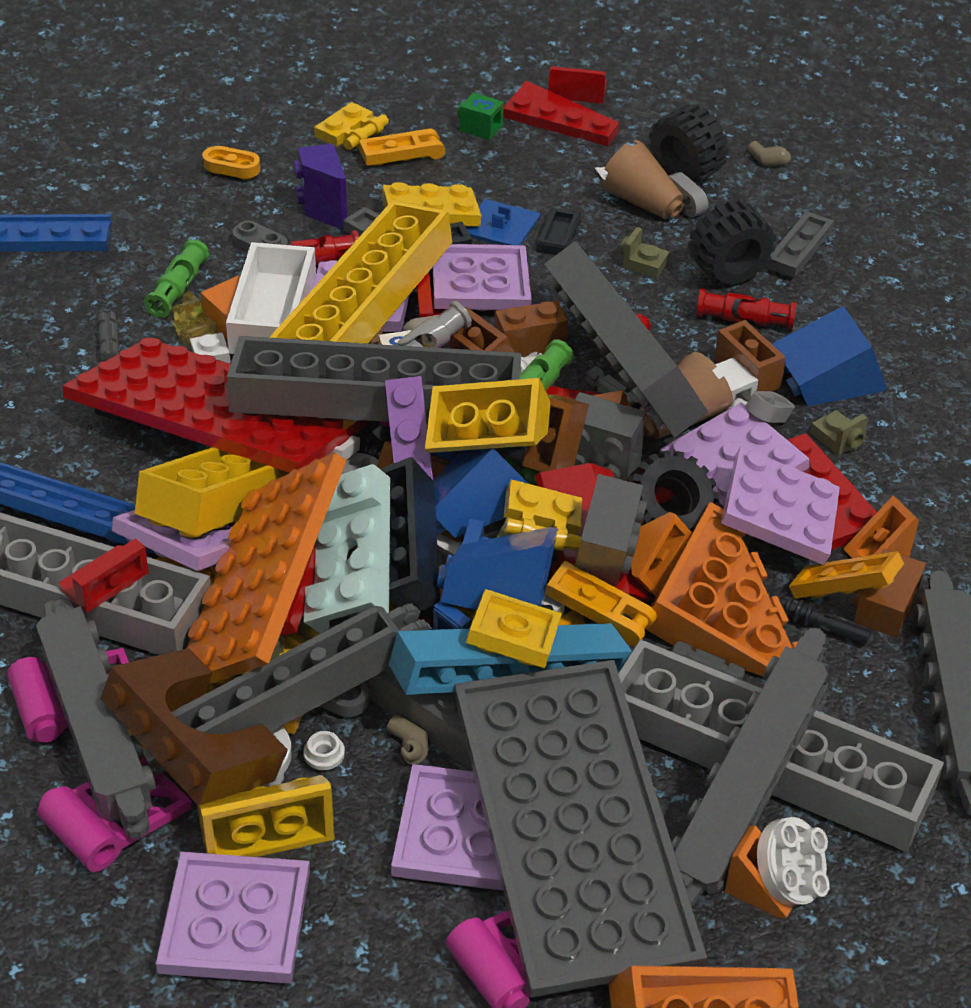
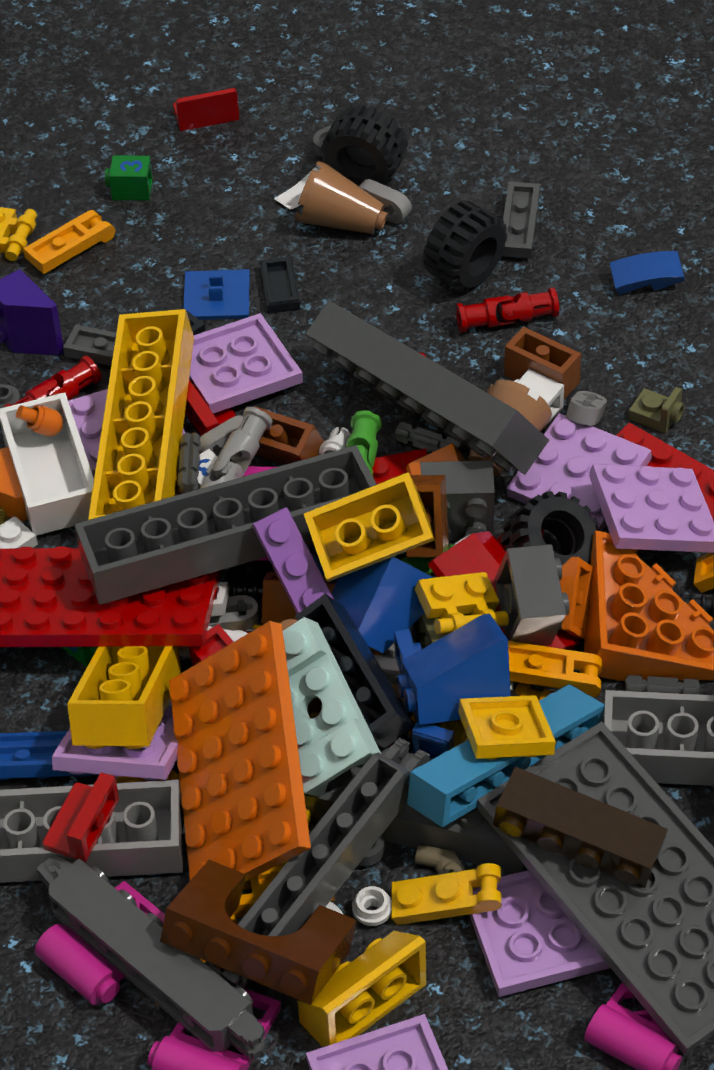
camera: 20 degrees left, 5 degrees up
(283, 262) = (41, 419): none -> orange cylinder
(387, 328) = (189, 462): none -> dark grey axle
(392, 765) = (446, 895): none -> yellow plate
(456, 199) = (140, 293): yellow plate -> none
(532, 326) = (323, 401): dark orange brick -> none
(534, 743) = (579, 827): none -> dark brown brick
(557, 114) = (192, 147): red wing -> none
(643, 257) = (378, 285): olive bracket -> none
(769, 156) = (437, 129): dark tan arm -> none
(830, 360) = (616, 338): blue slope -> none
(901, 317) = (652, 268): none -> blue slope

